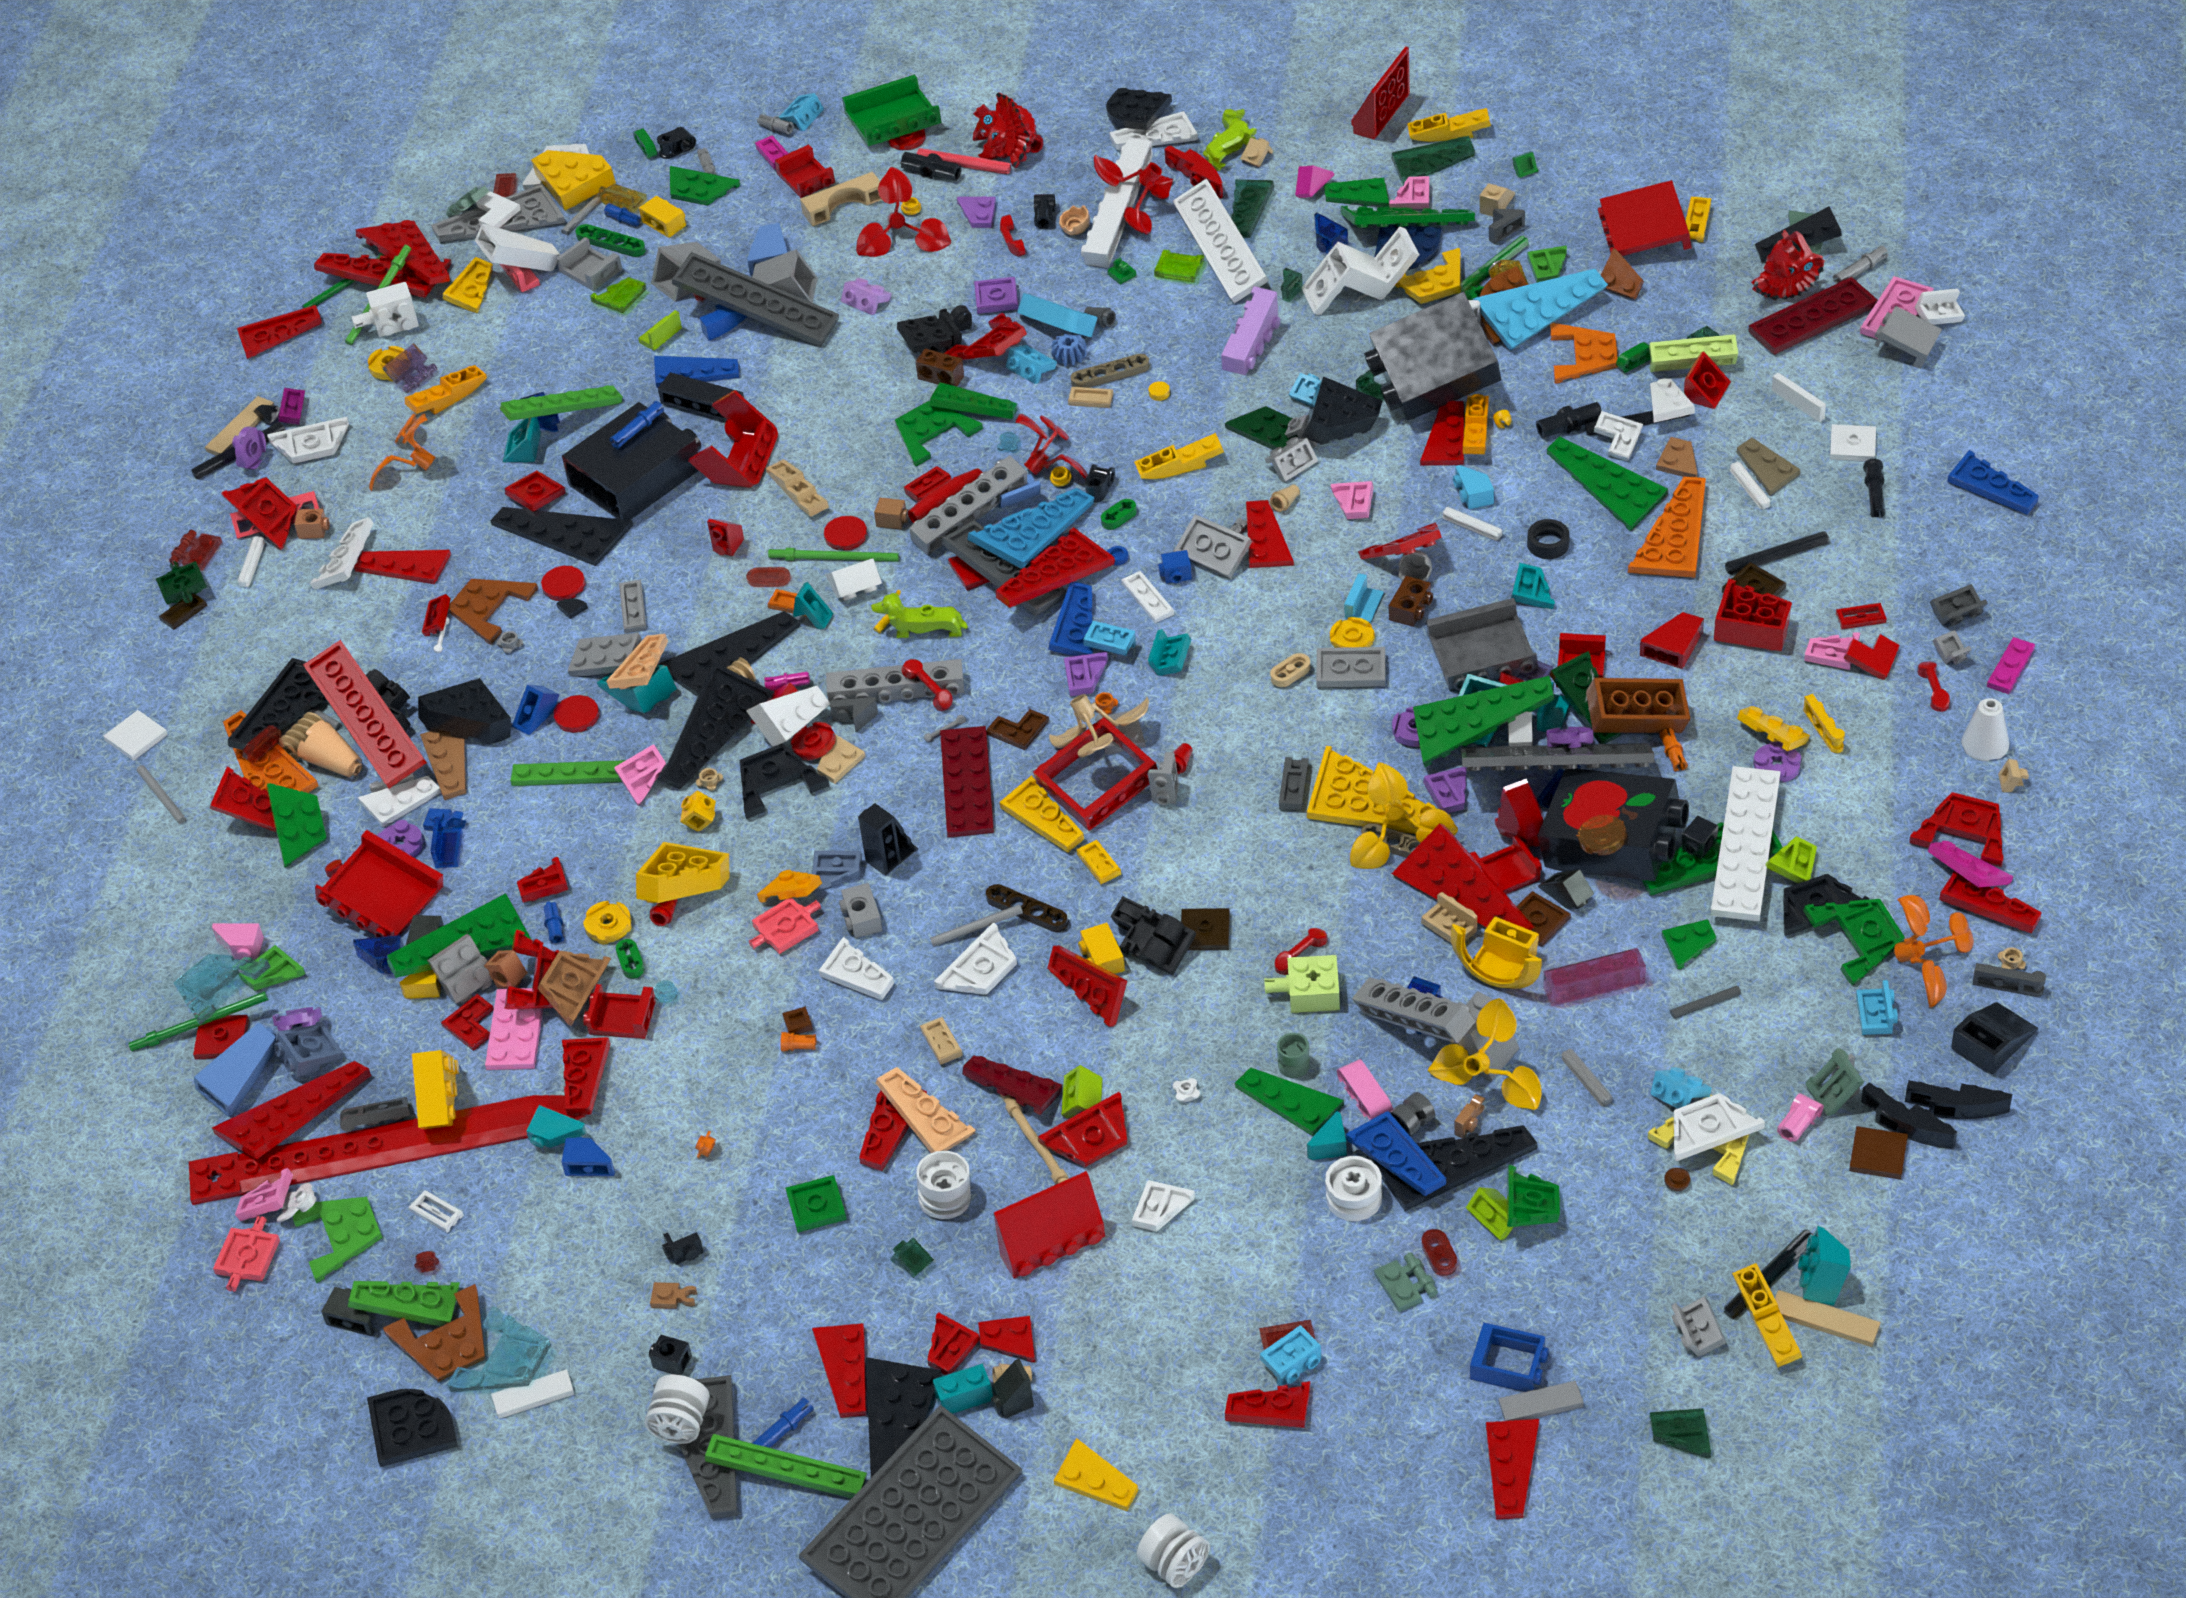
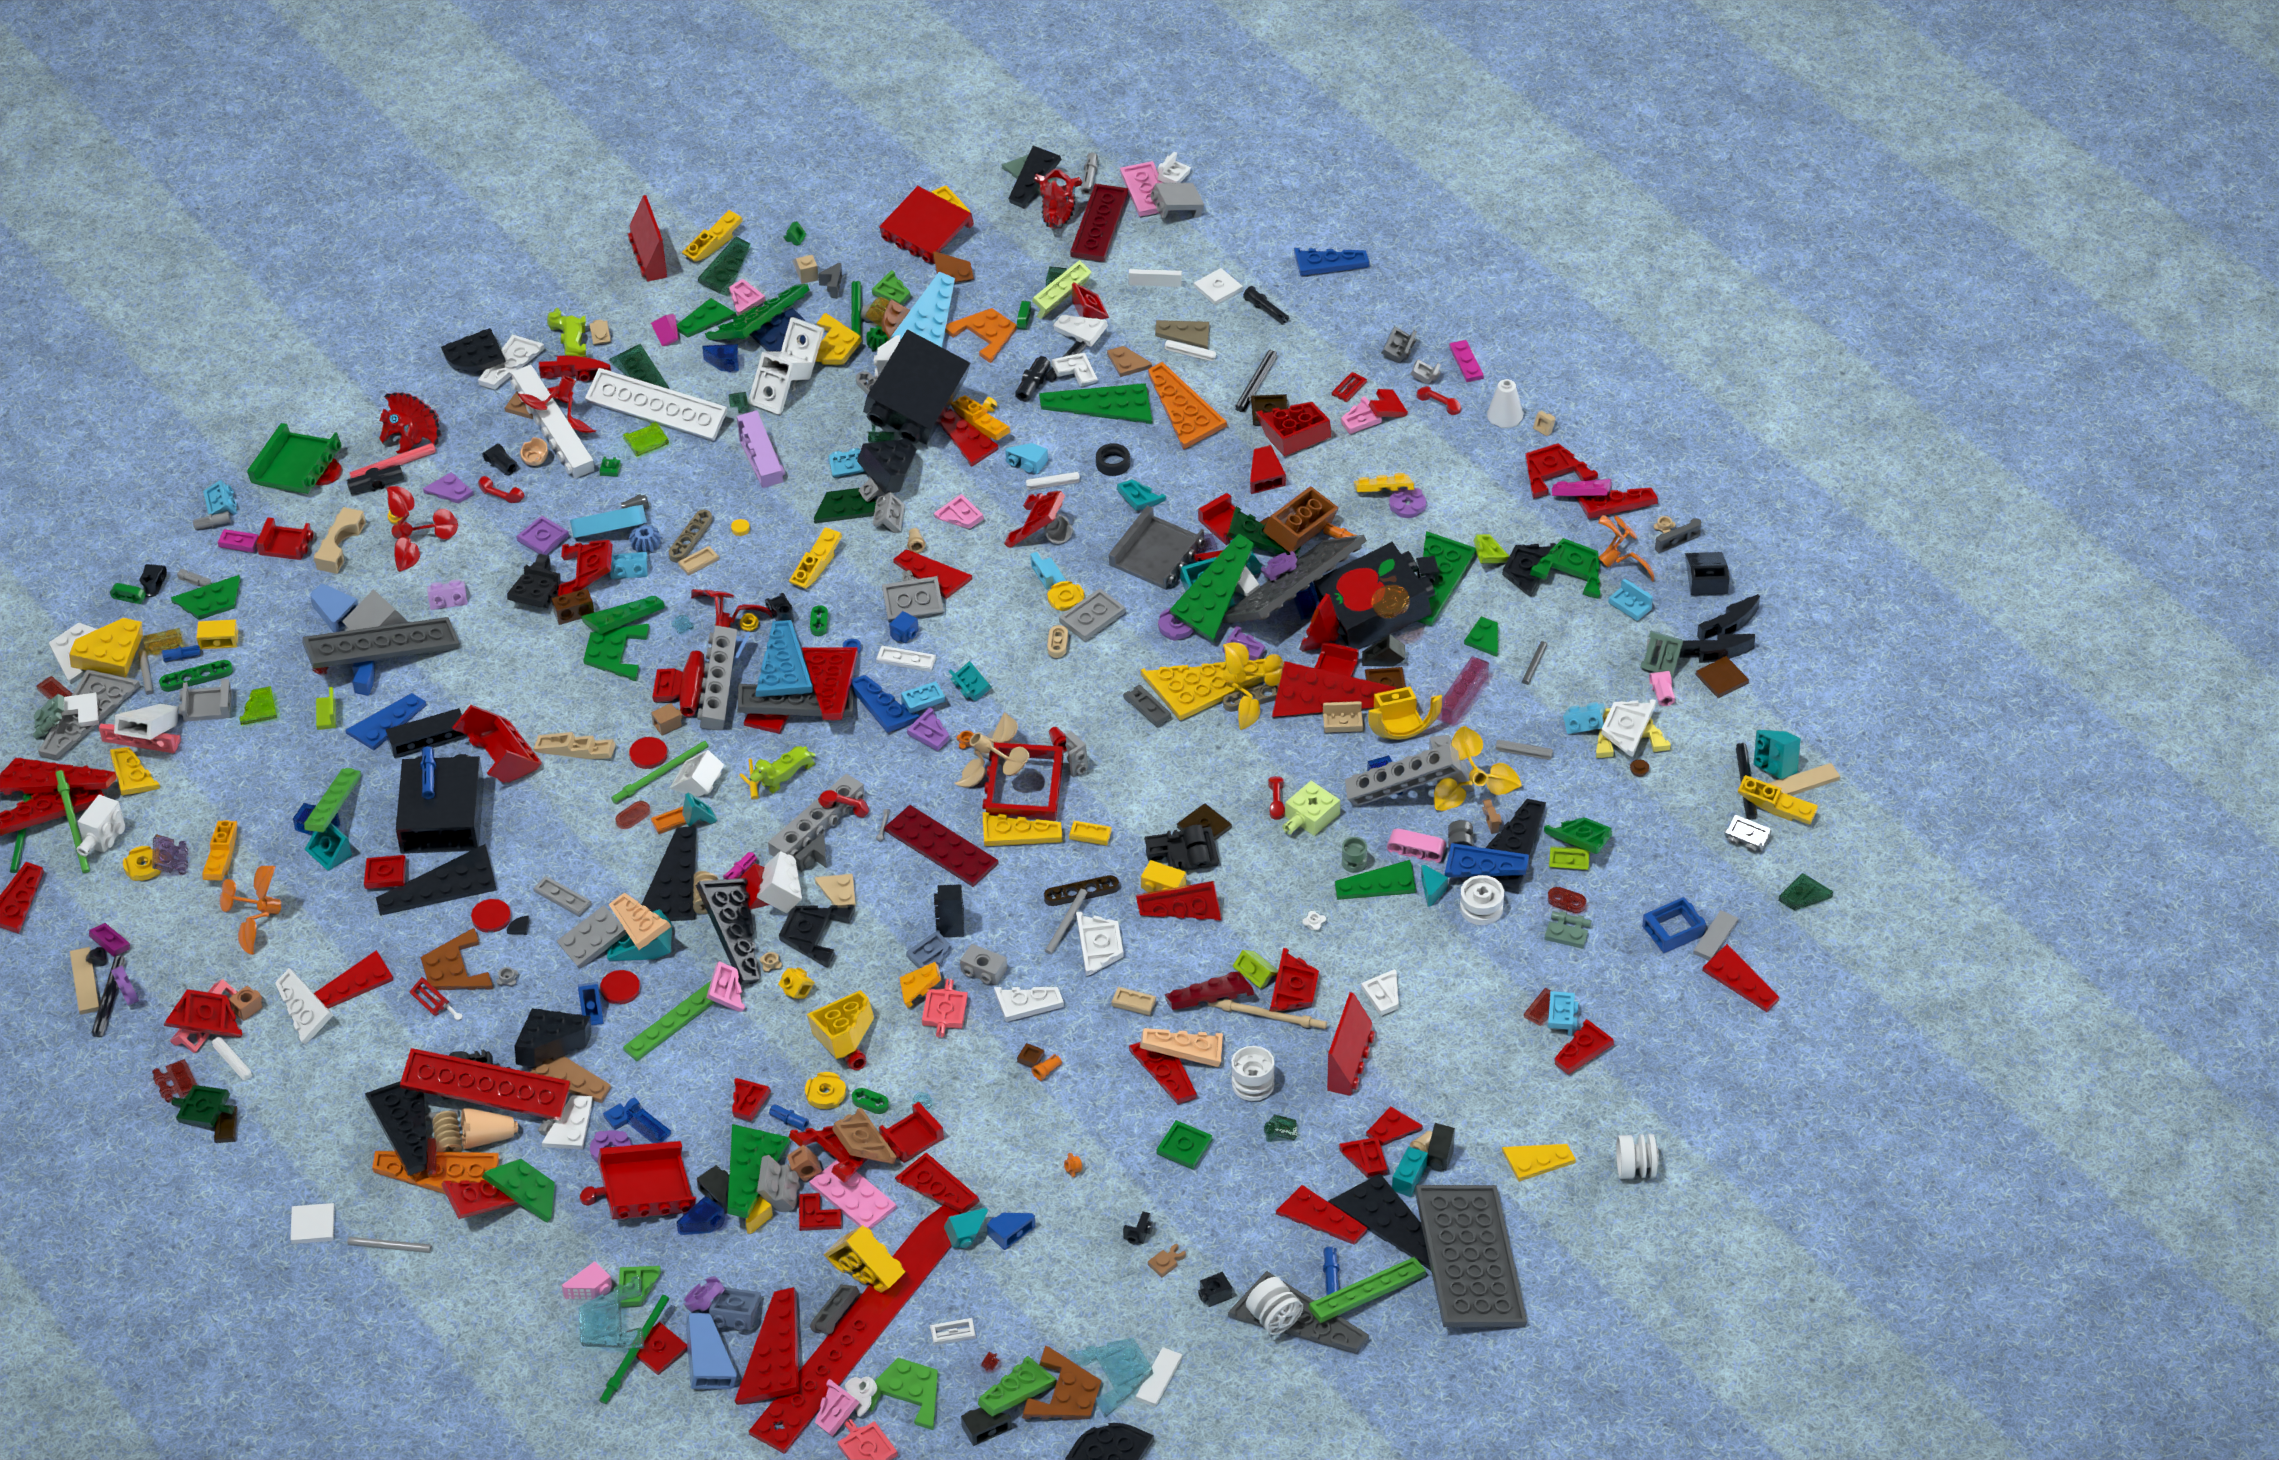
camera: 50 degrees left, 0 degrees up
(310, 440) = (158, 953): white wing -> none
(669, 261) = (287, 660): light grey slope -> none
(725, 536) = (573, 808): red slope -> none
(813, 741) = (813, 889): red tile -> none
(1020, 733) = (935, 795): reddish brown tile -> none
(1410, 601) = (1079, 551): reddish brown brick -> none
(1745, 843) = (1453, 558): white plate -> none
(1823, 724) = (1409, 462): yellow plate -> none

